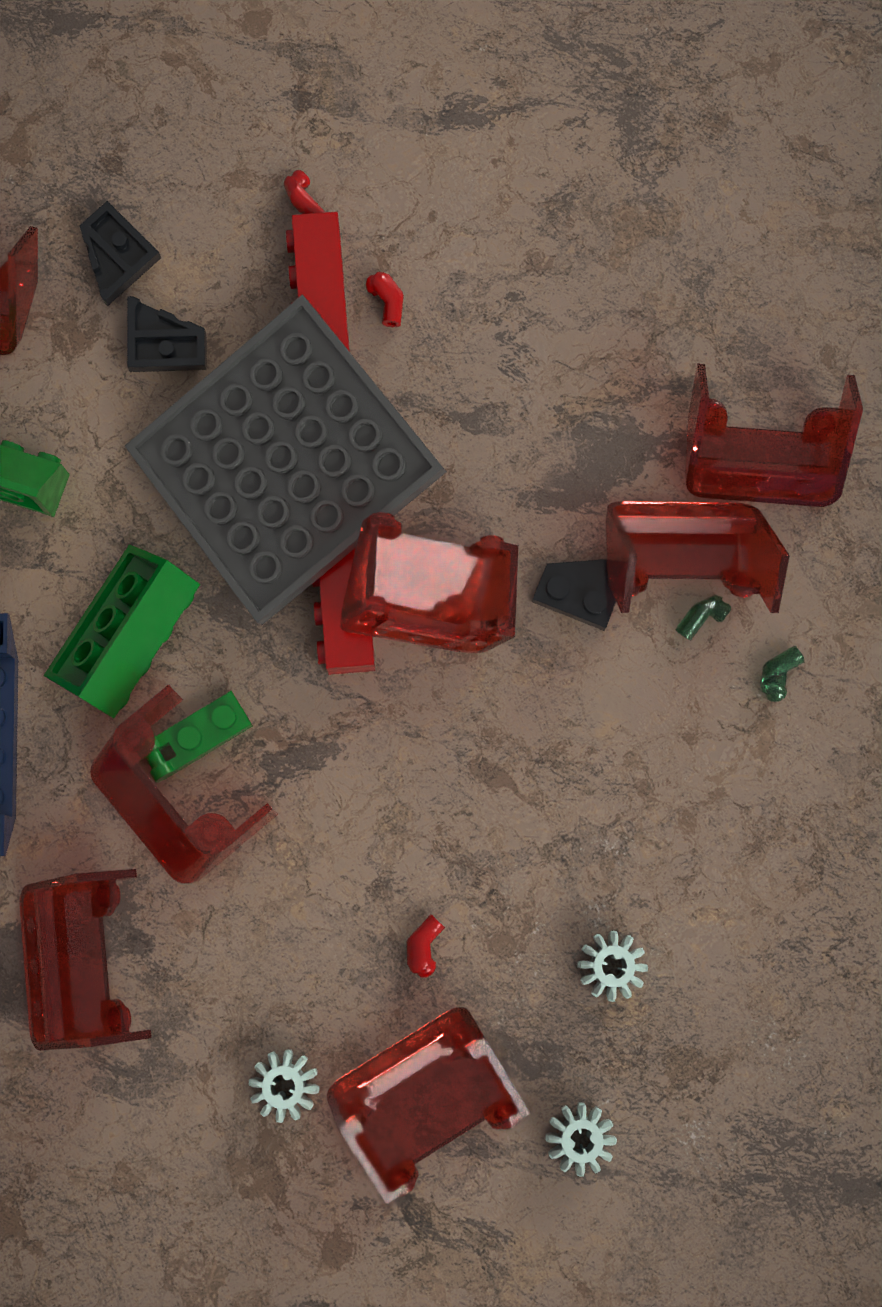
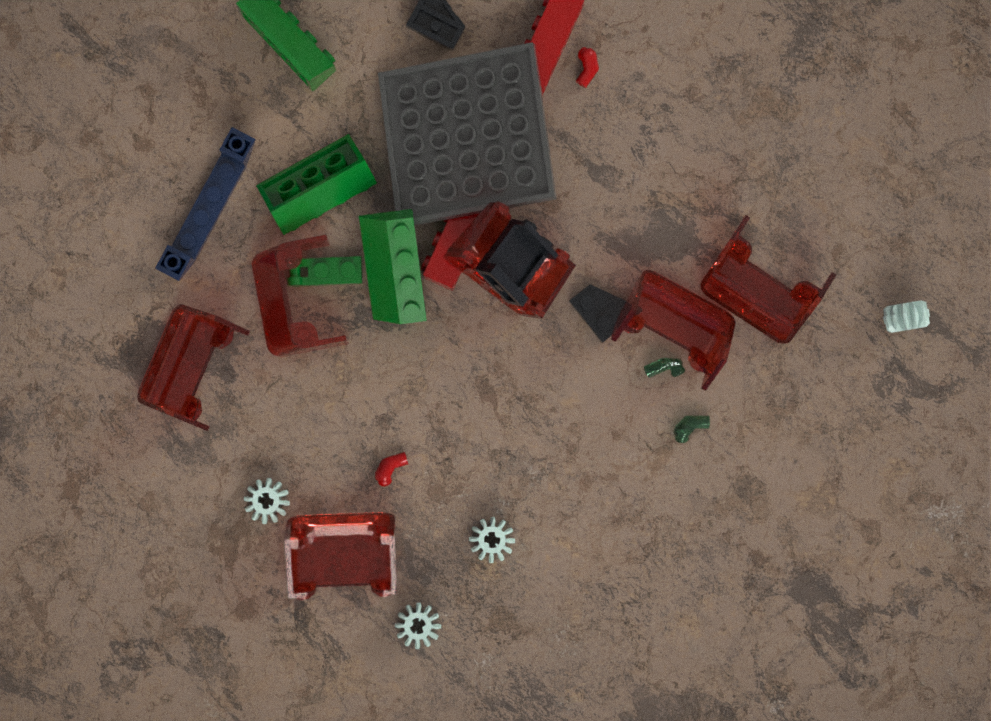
camera: 30 degrees right, 5 degrees up
(281, 678) = (393, 267): none -> green slope
(438, 578) = (515, 260): none -> black panel

